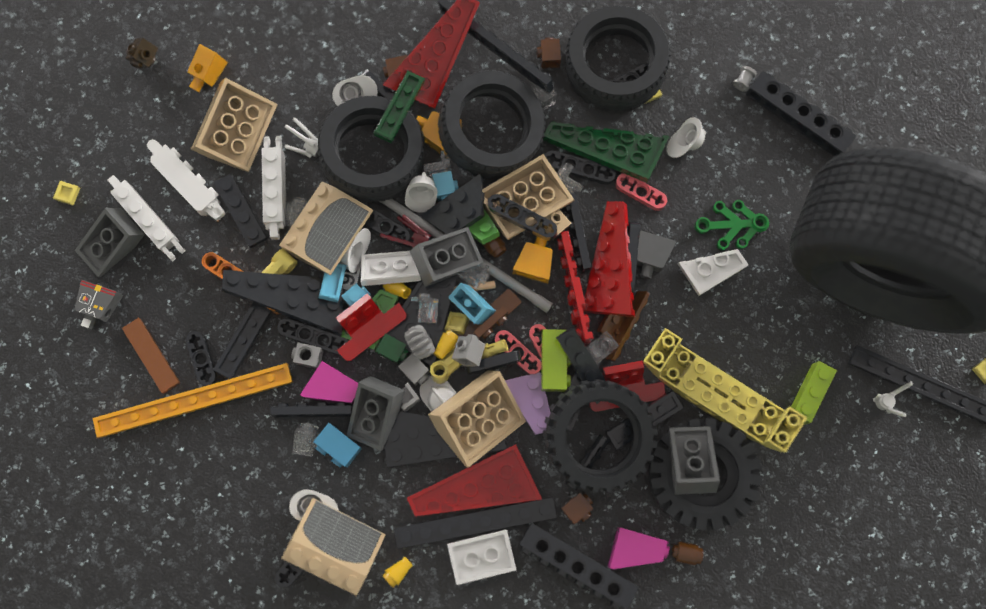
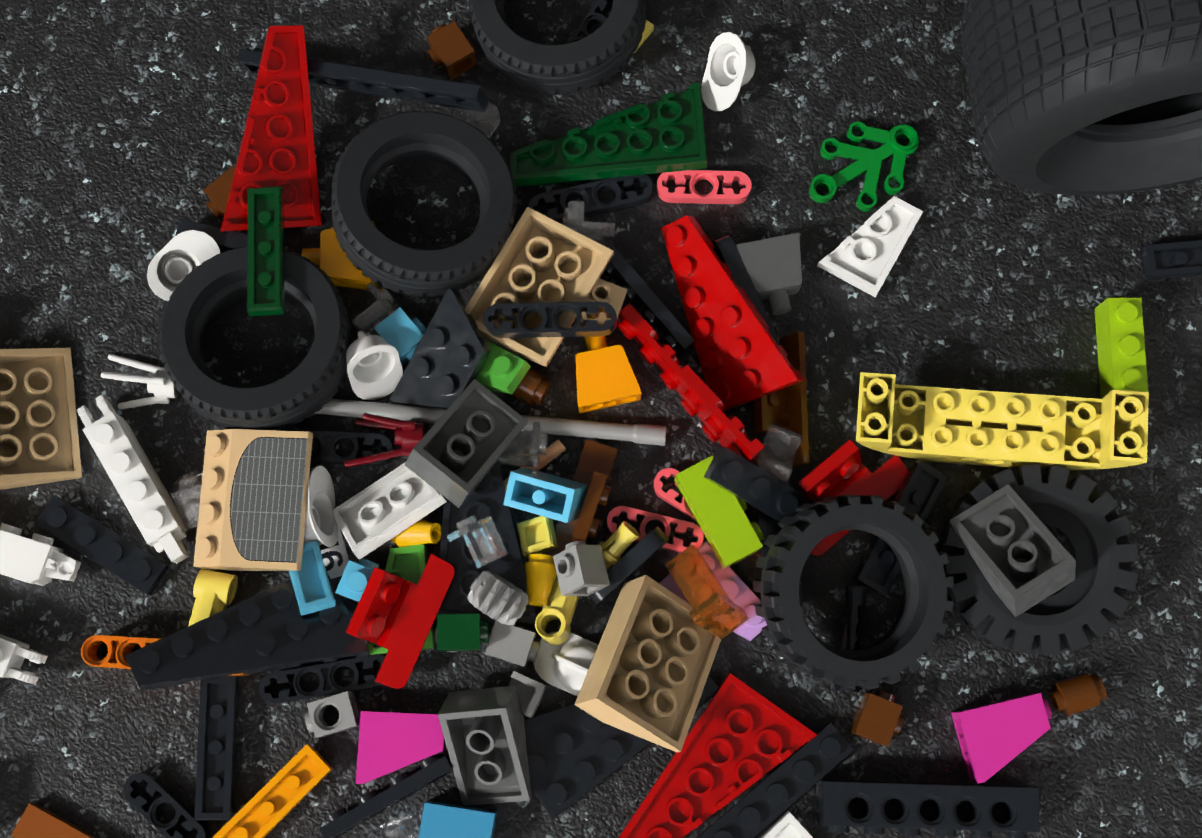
camera: 25 degrees left, 0 degrees up
(524, 398) = (710, 602): none -> clear orange bracket

